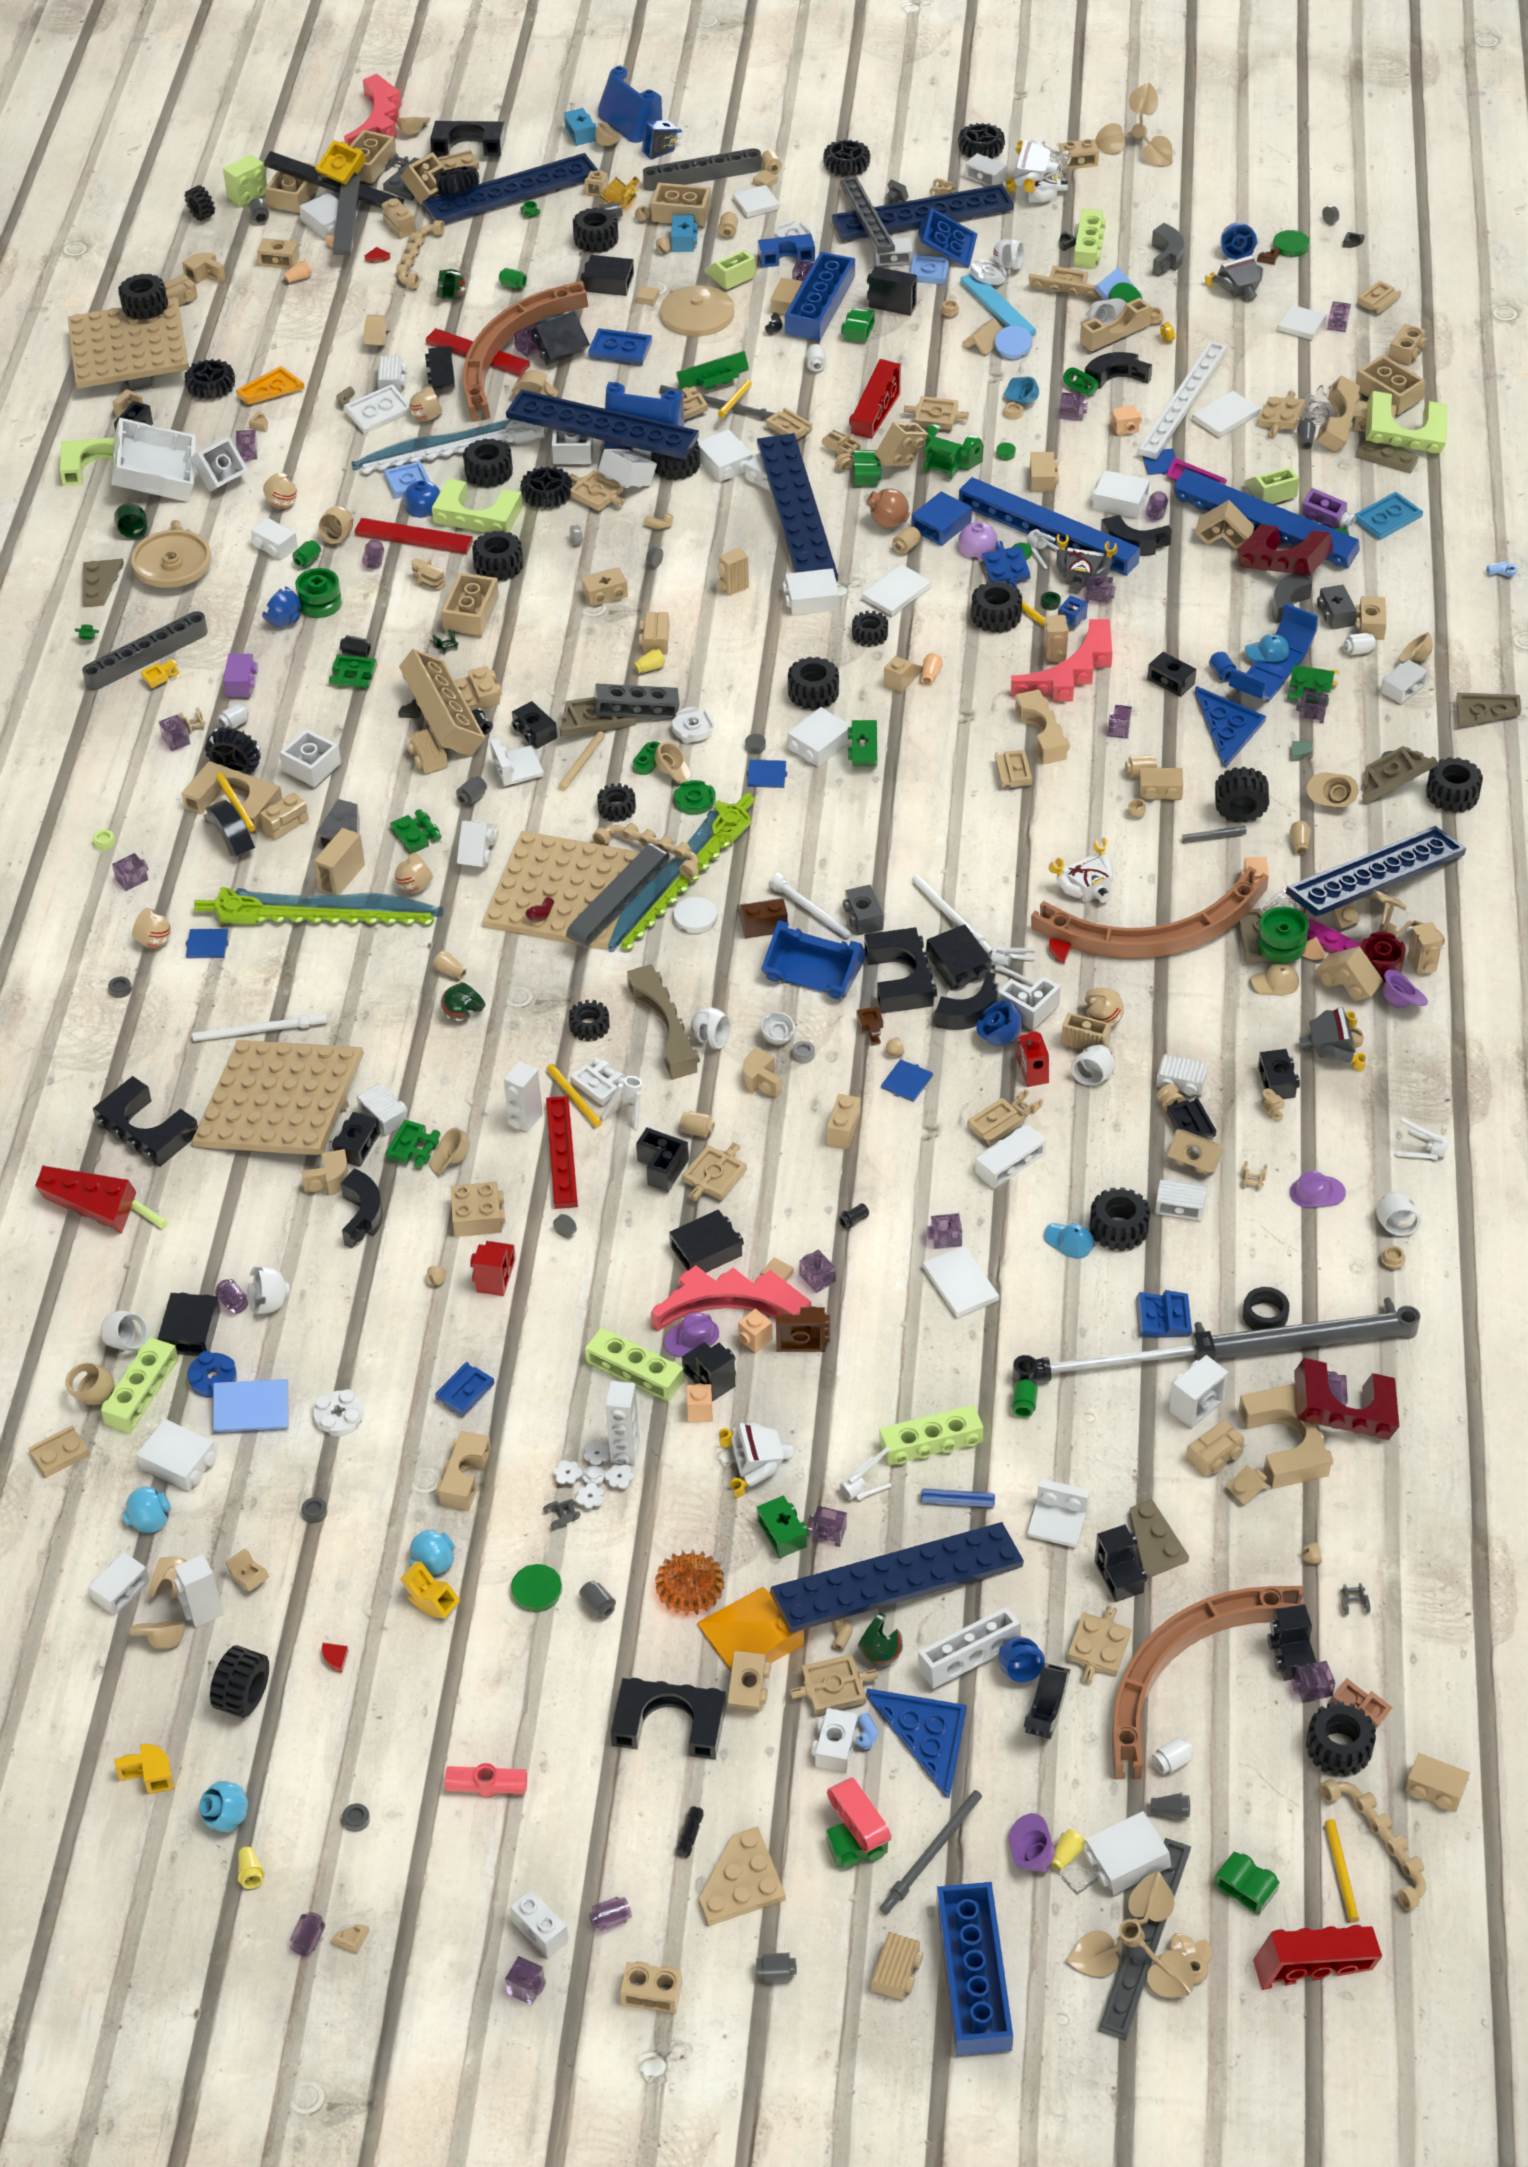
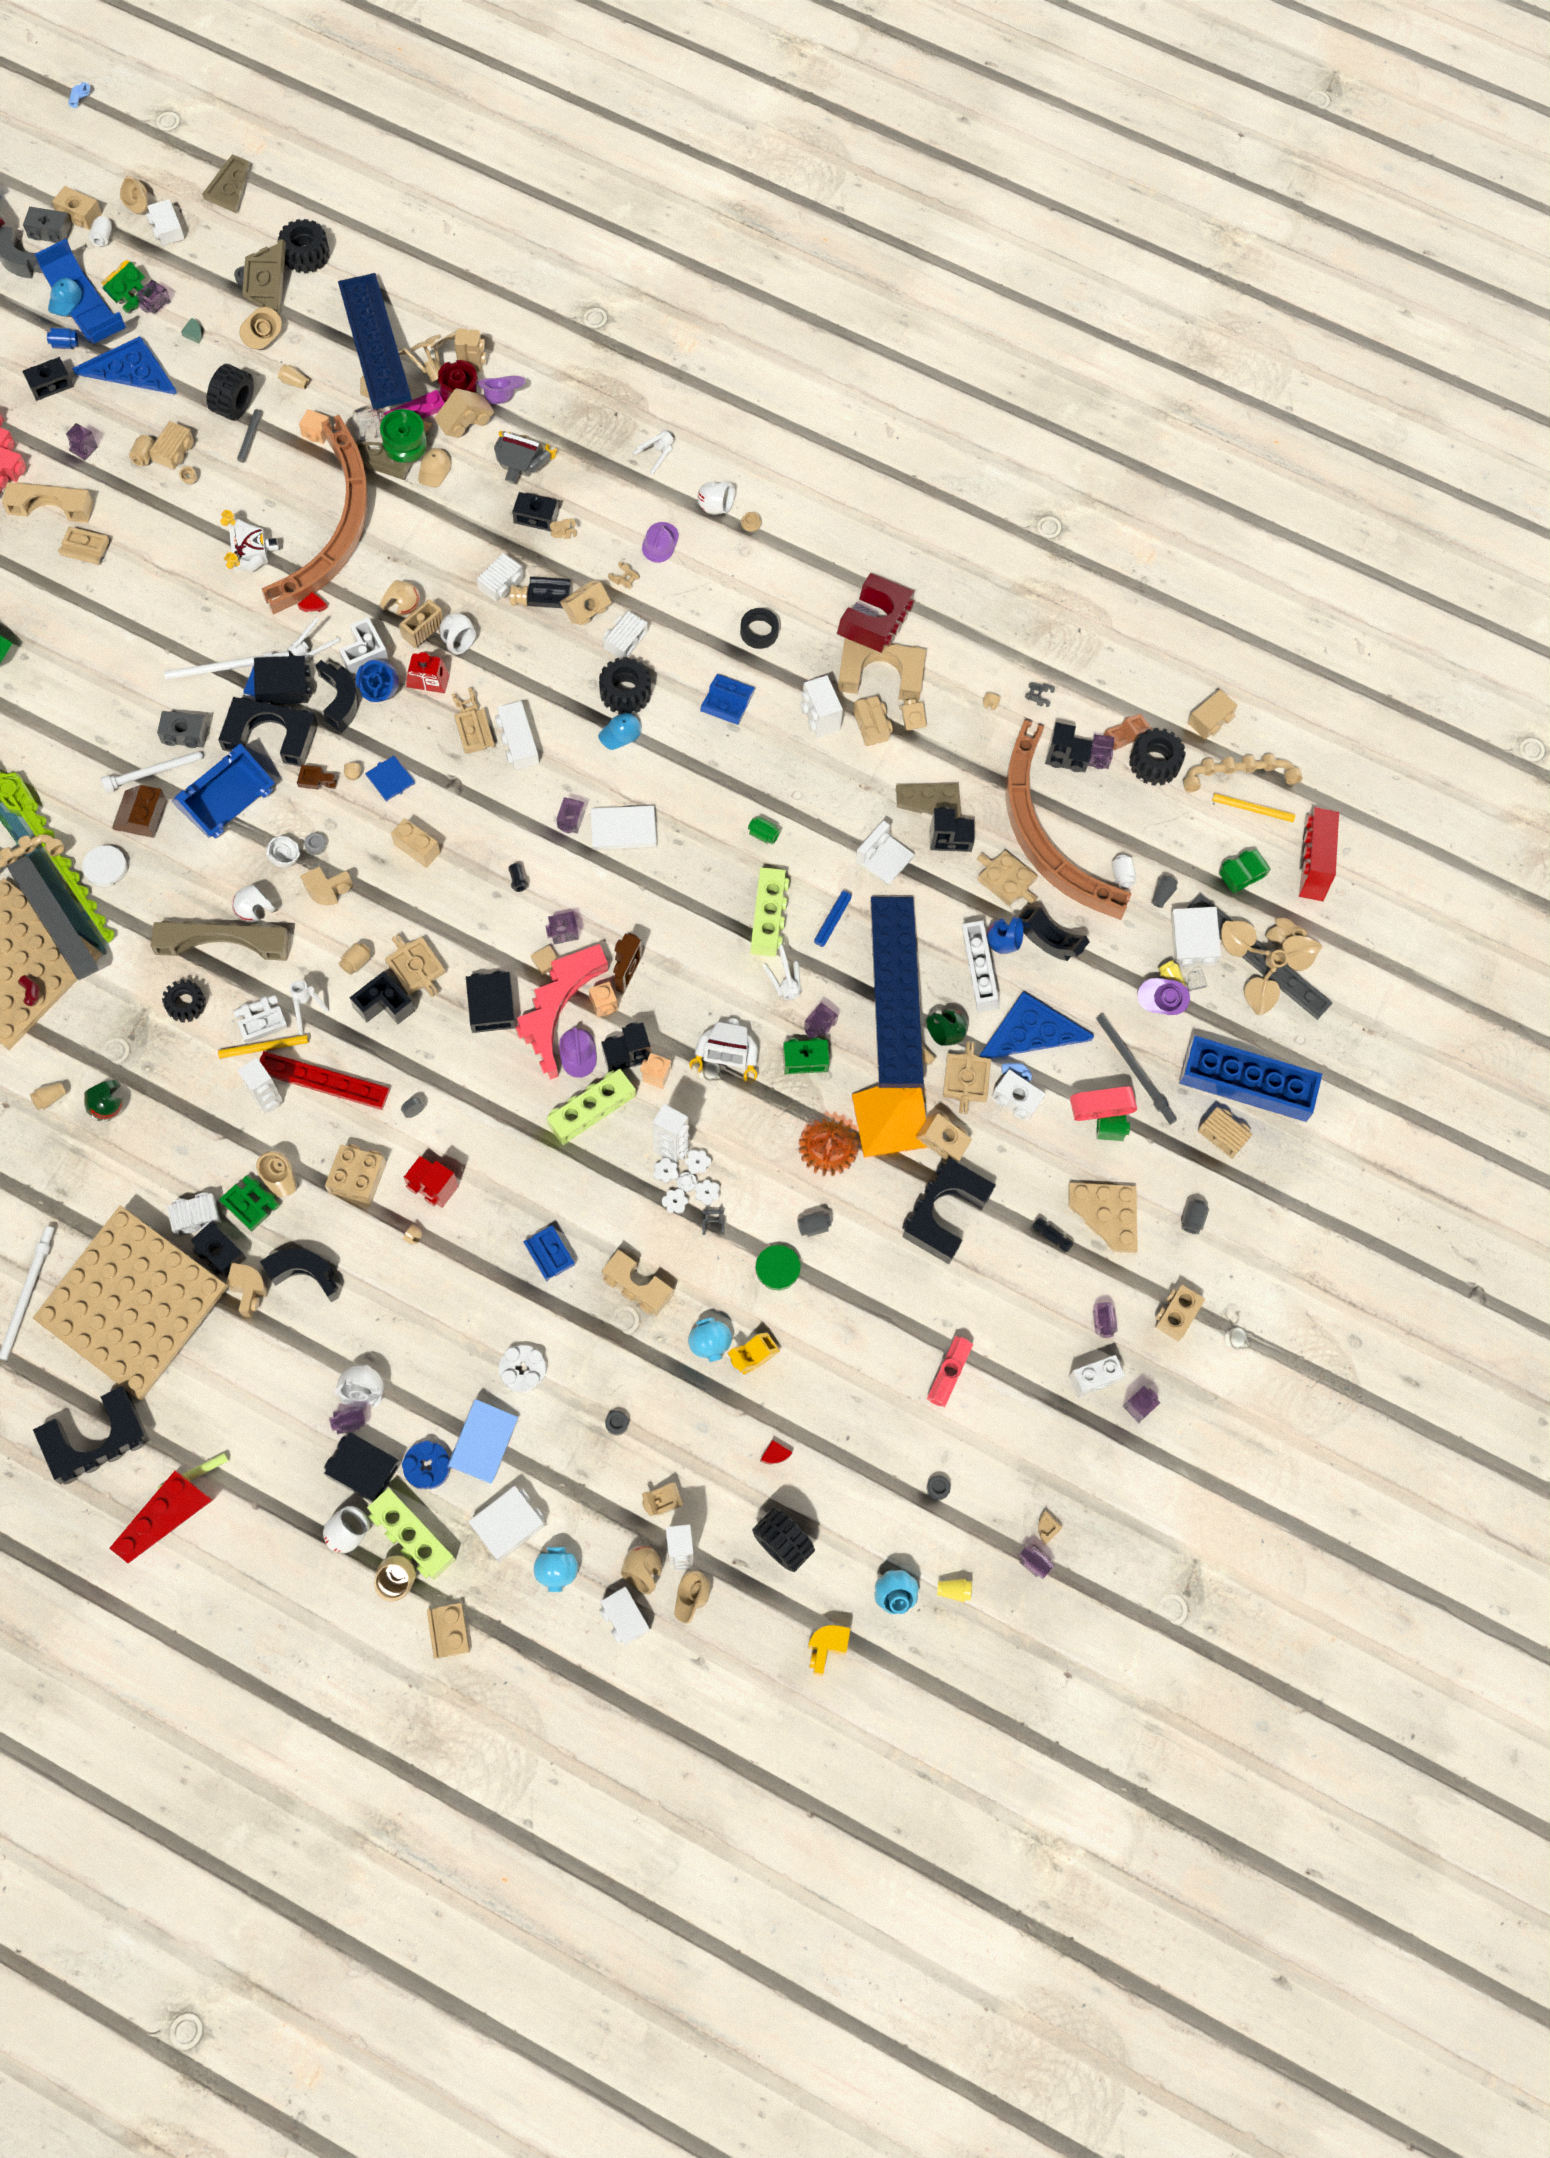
camera: 75 degrees left, 20 degrees up
(1401, 1323) = (778, 678): dark grey piece -> none

